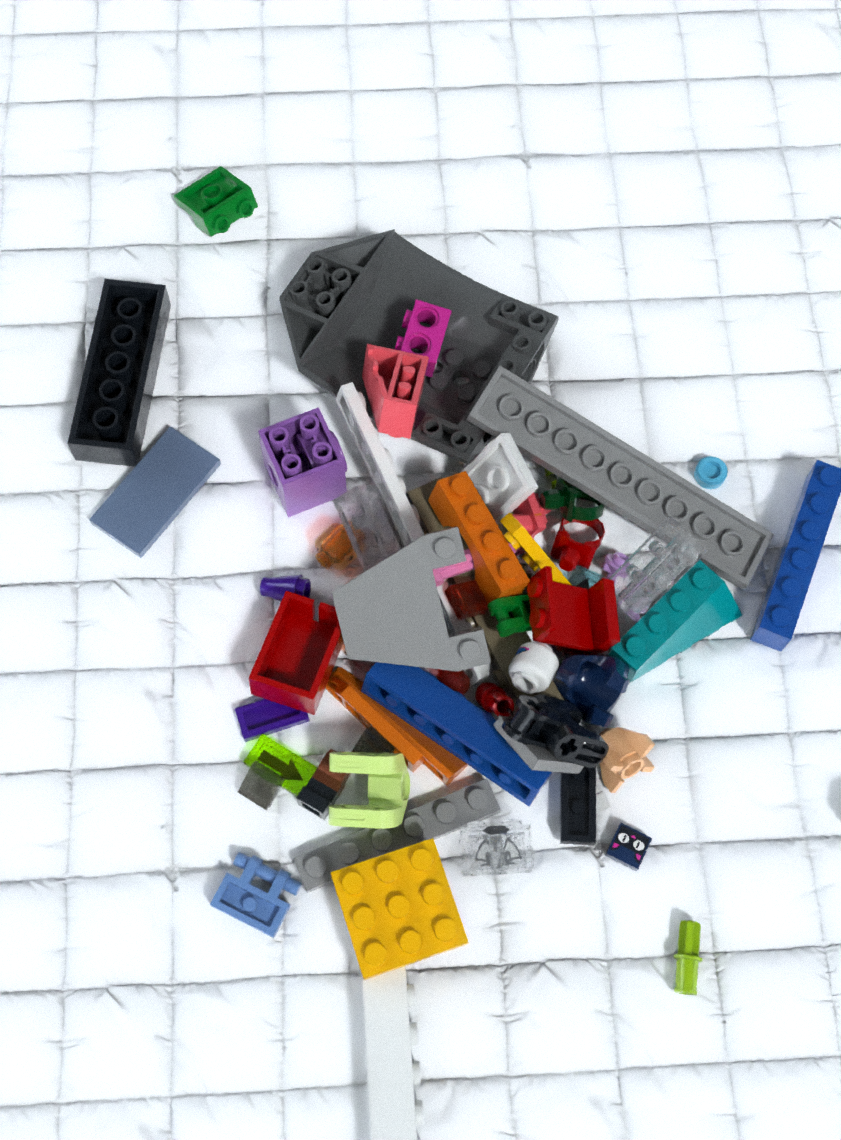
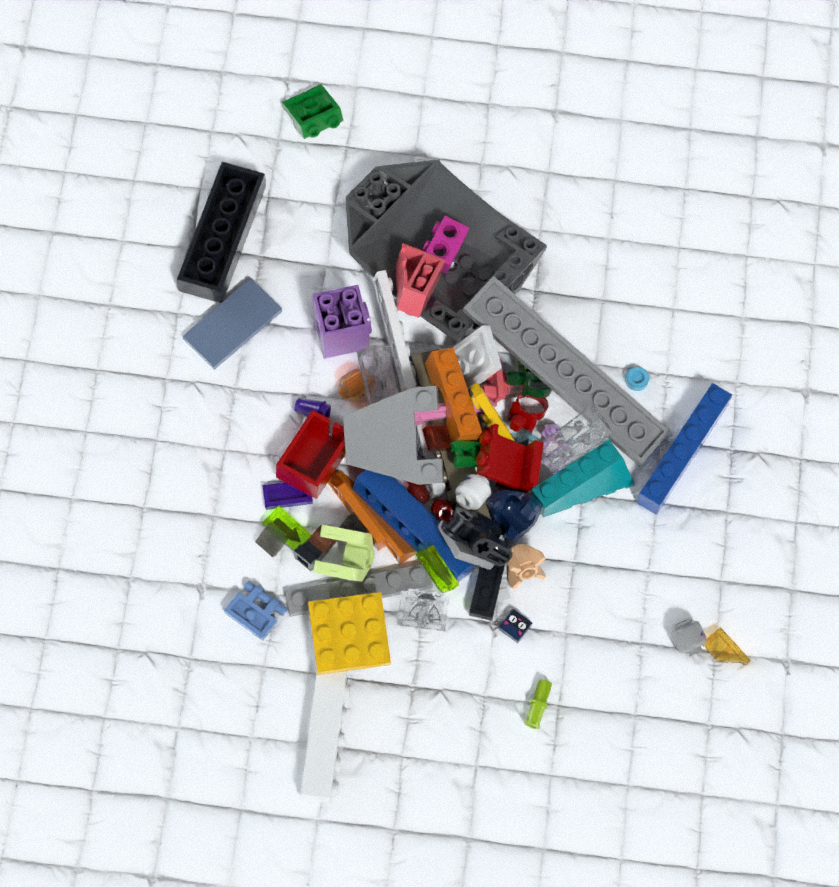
camera: 10 degrees right, 0 degrees up
(504, 786) = (437, 569): none -> clear neon green tile

